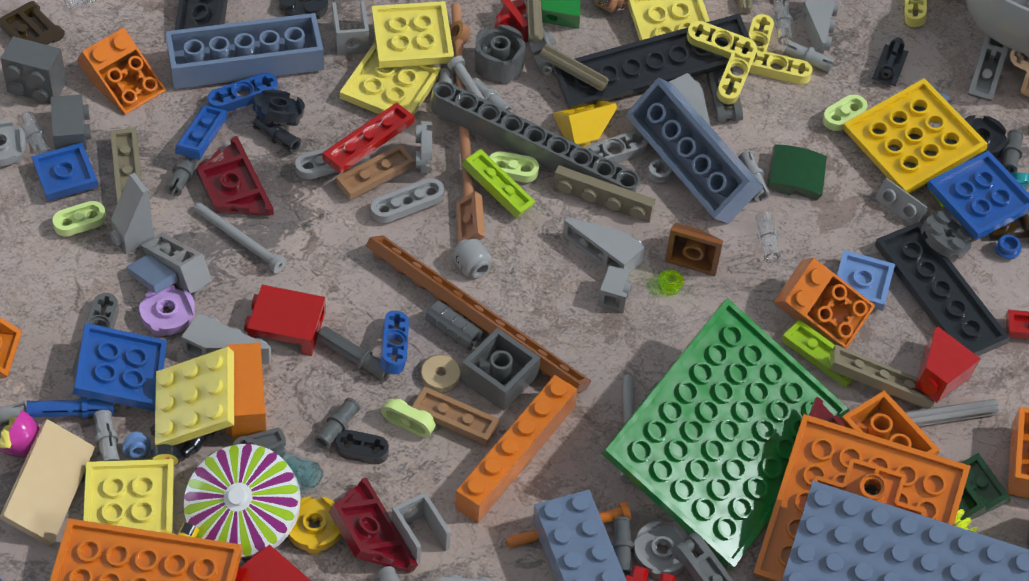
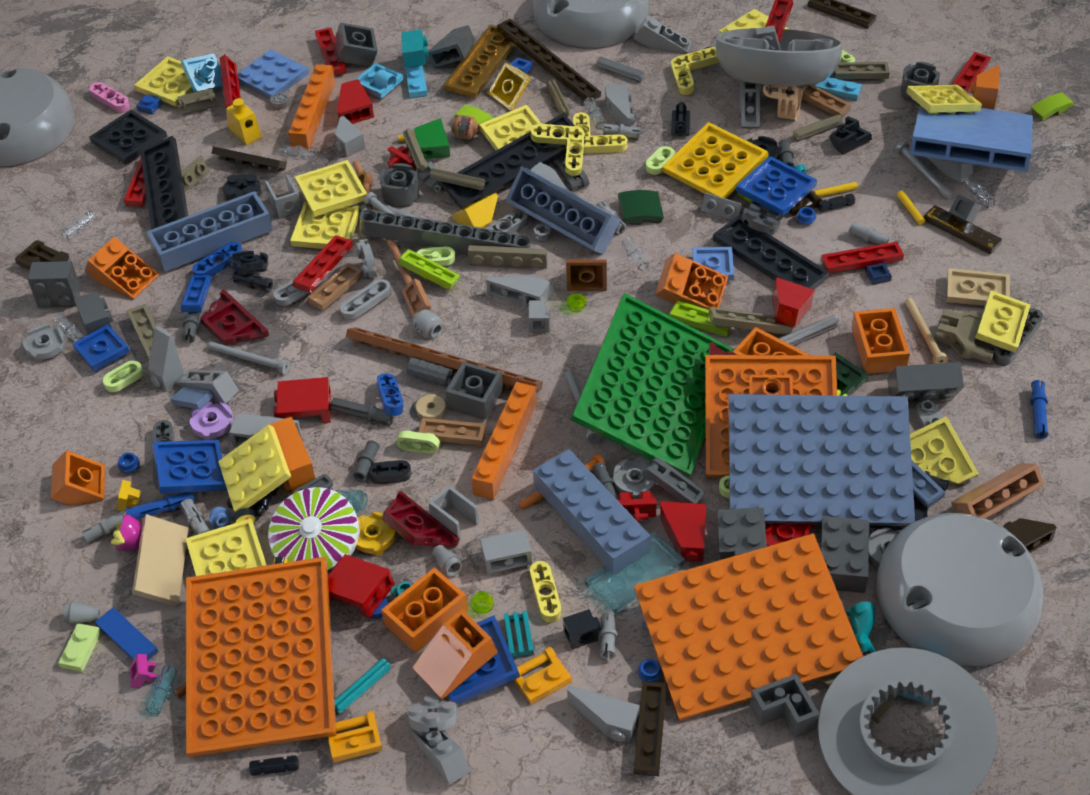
camera: 10 degrees left, 5 degrees down
(35, 383) = (127, 496): none -> yellow tile
(50, 338) = (128, 463): none -> blue plate

